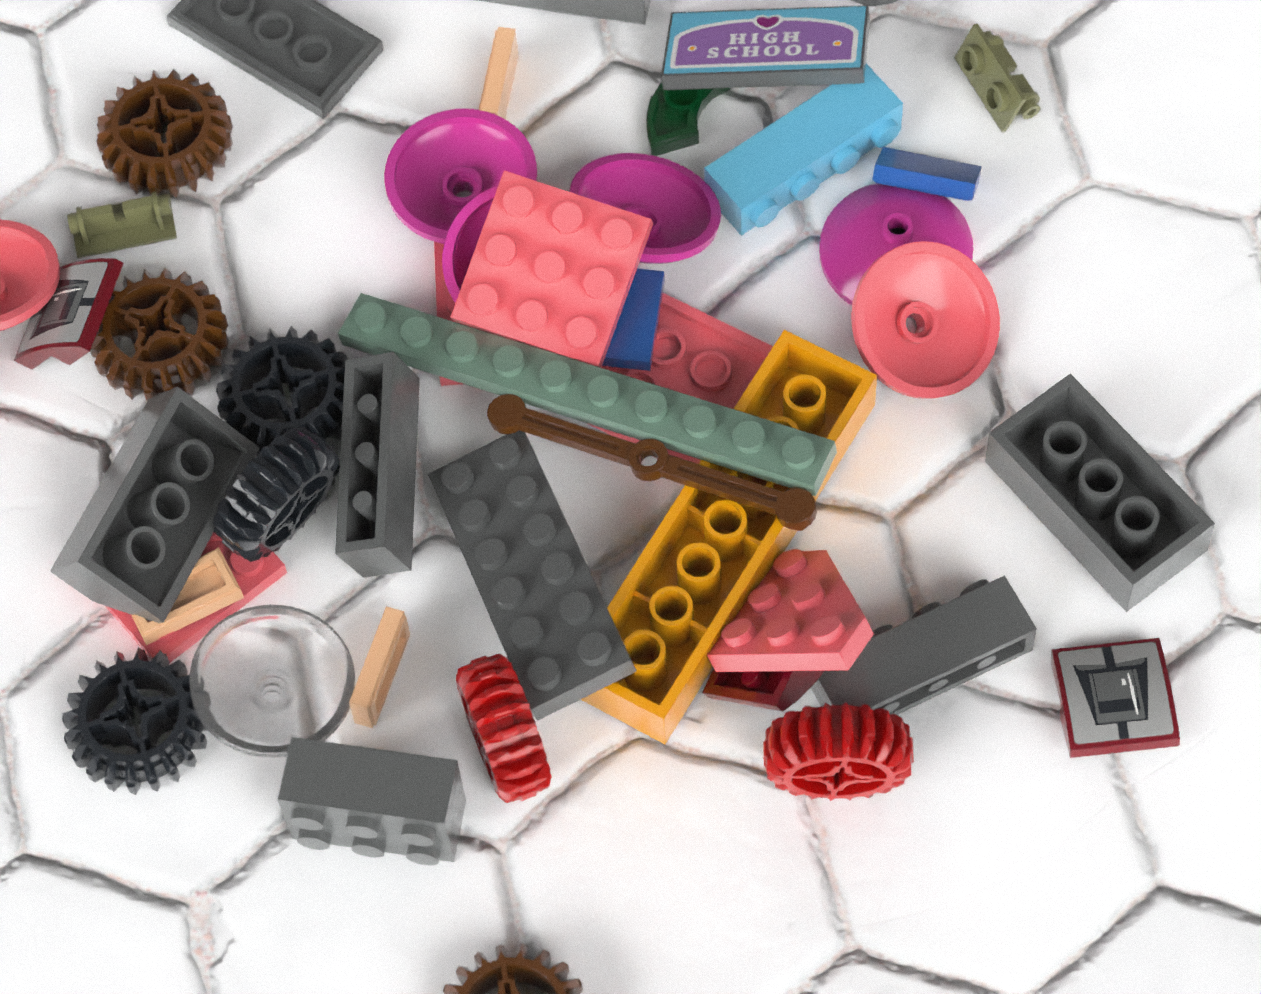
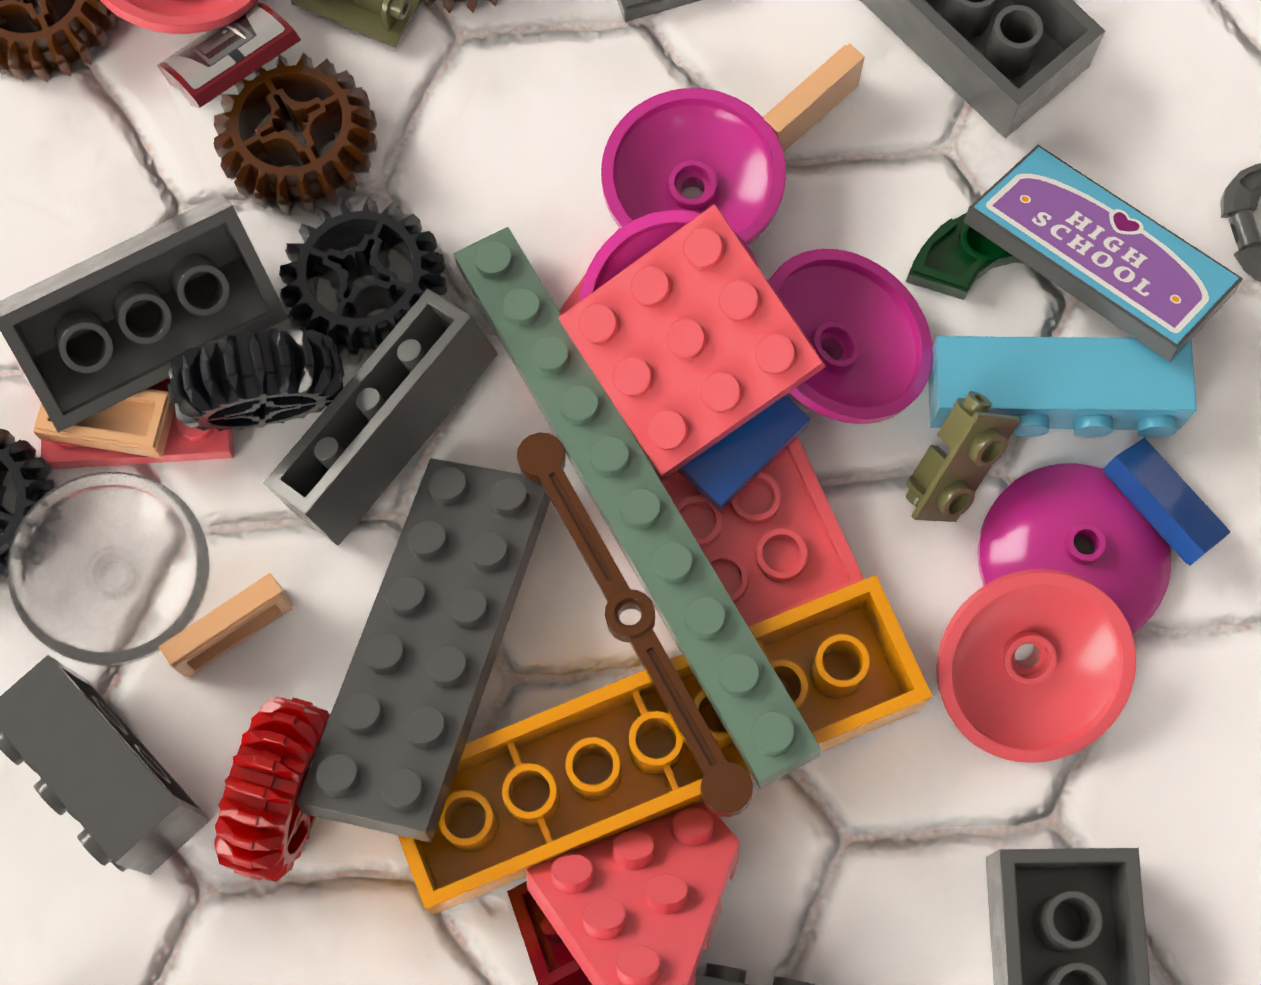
camera: 35 degrees right, 10 degrees up
(781, 257) = (947, 484): none -> olive hinge

